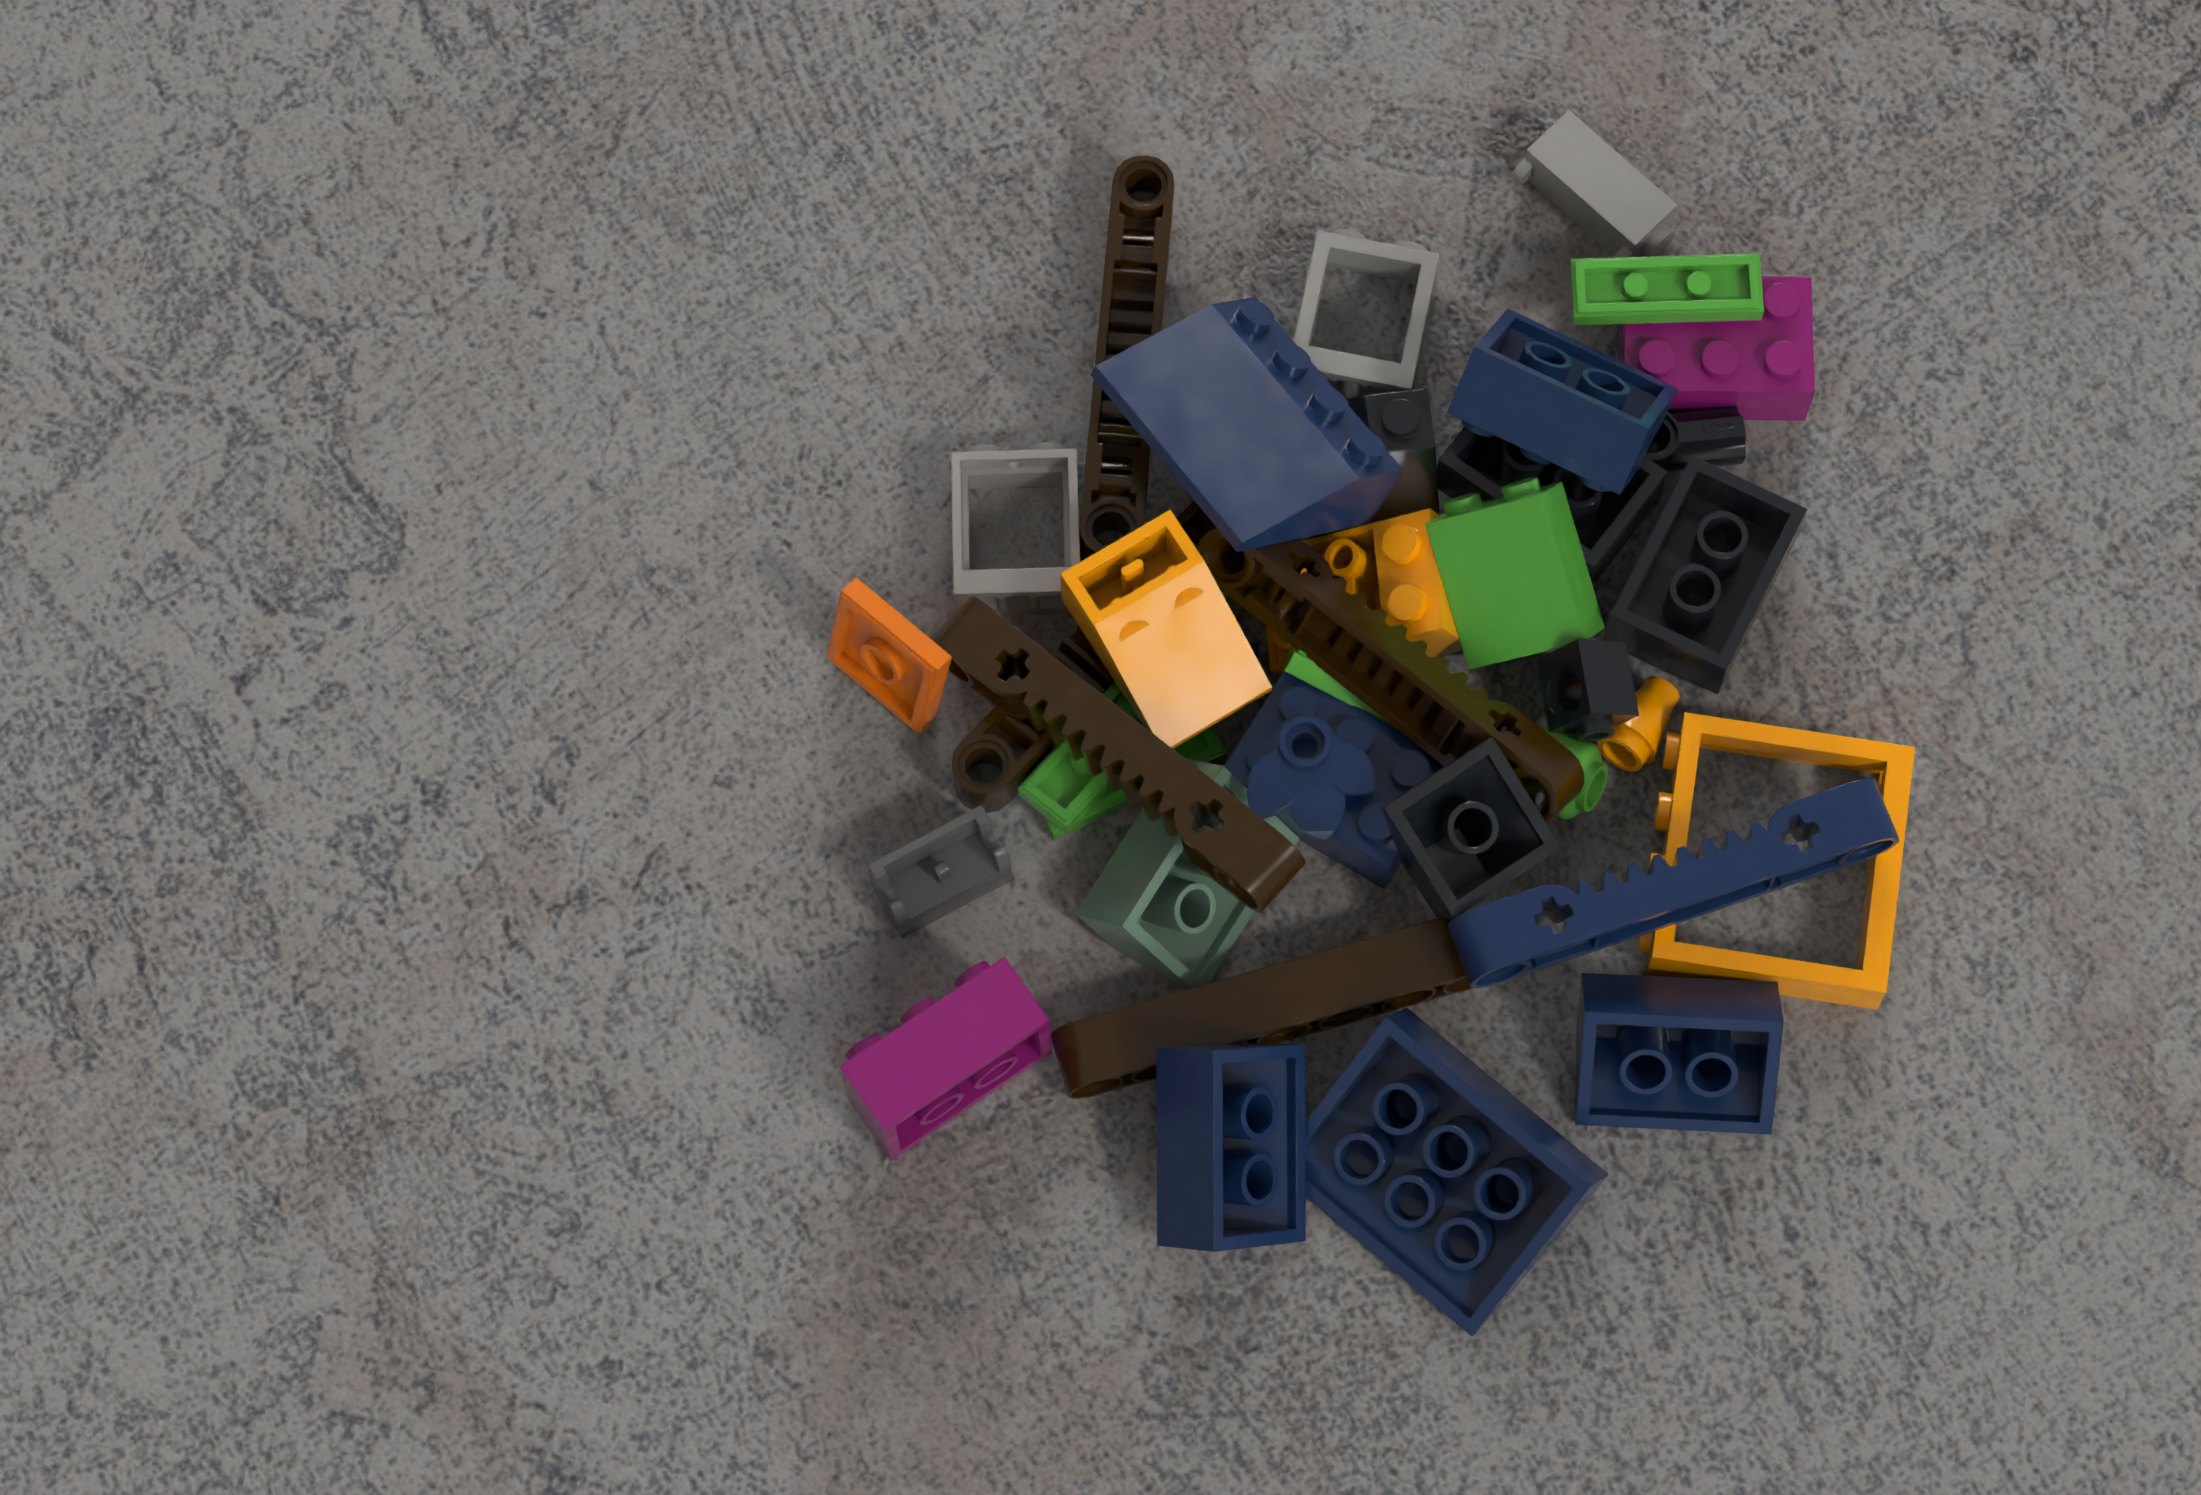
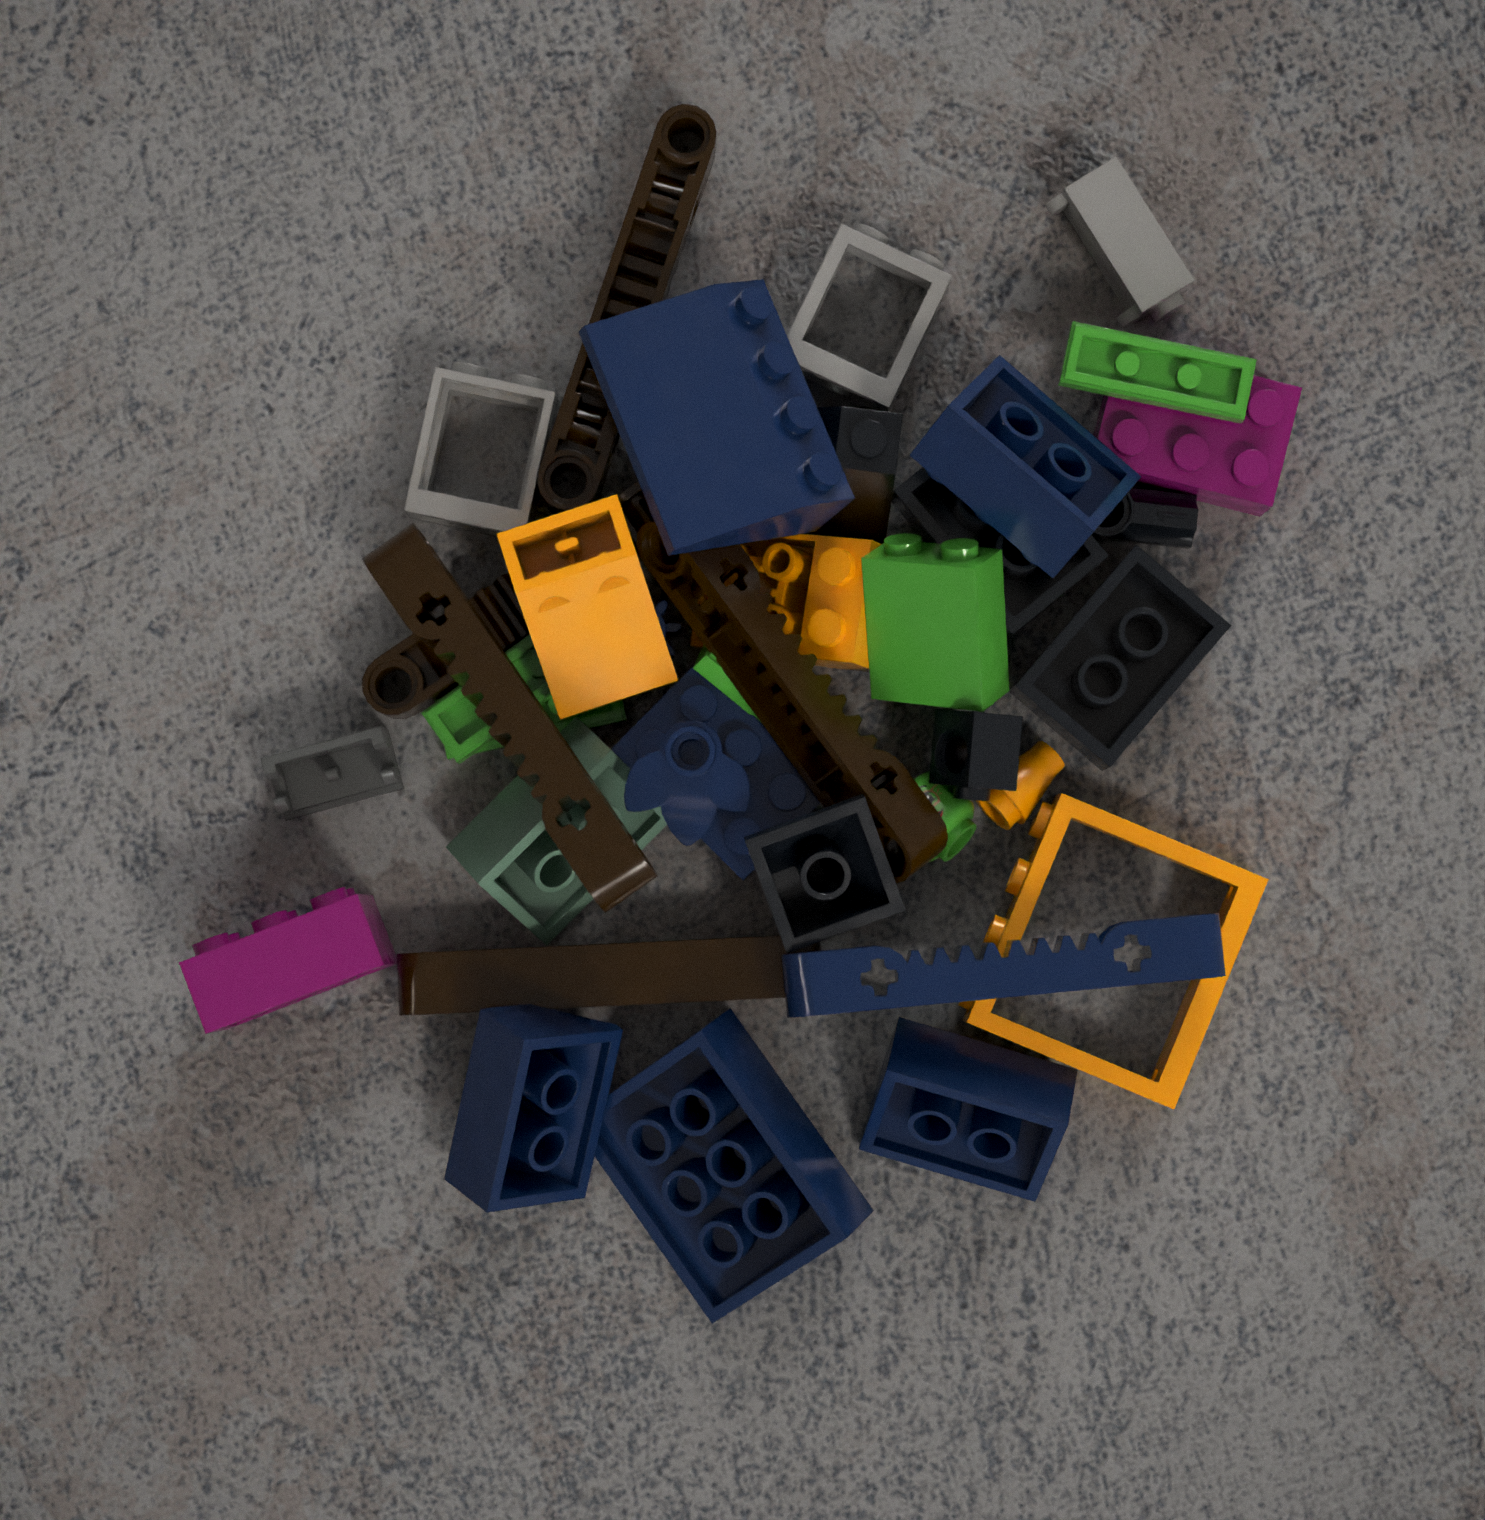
camera: 15 degrees right, 15 degrees up
(888, 656) = (327, 557): orange tile -> none

